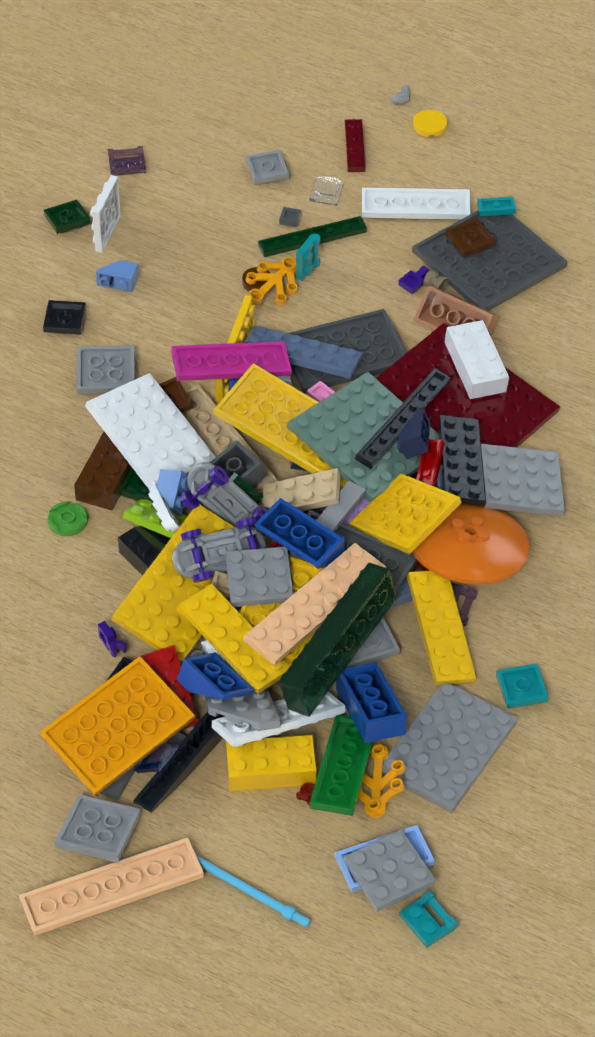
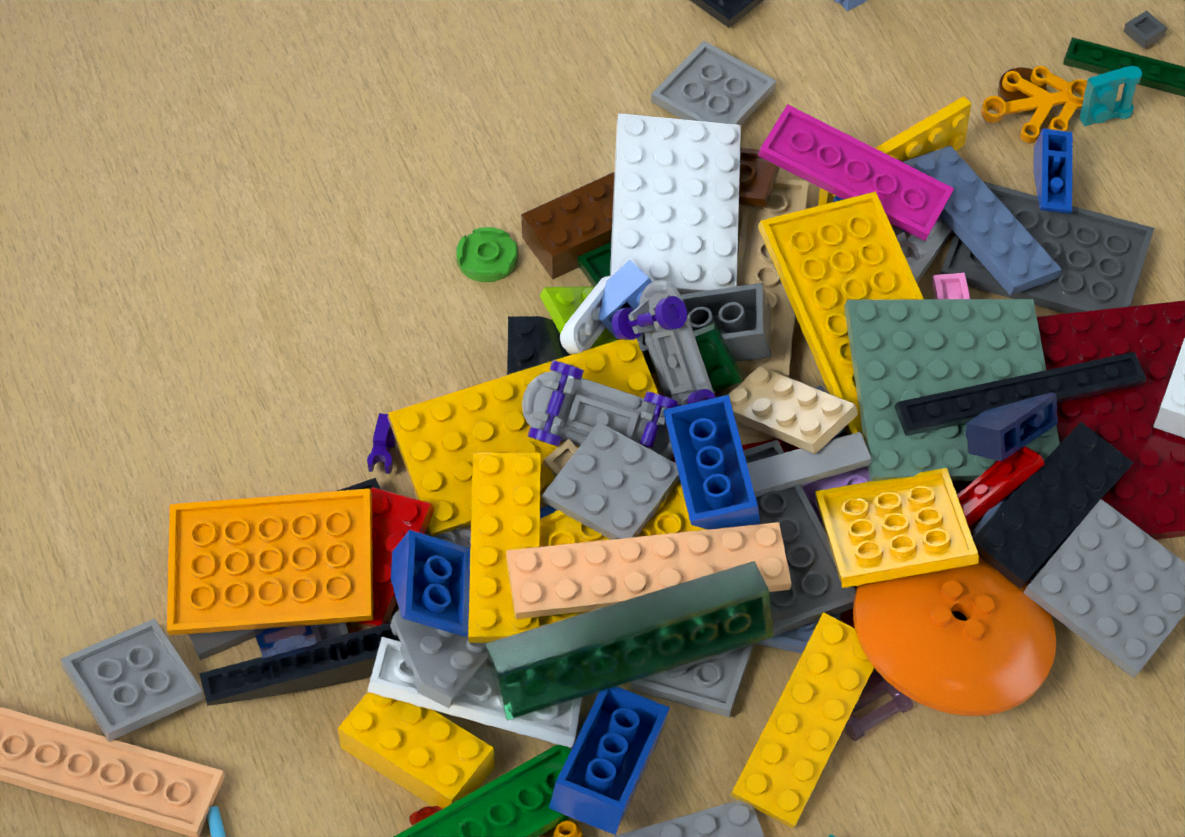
camera: 40 degrees right, 5 degrees up
(313, 308) = (1054, 170): none -> blue slope

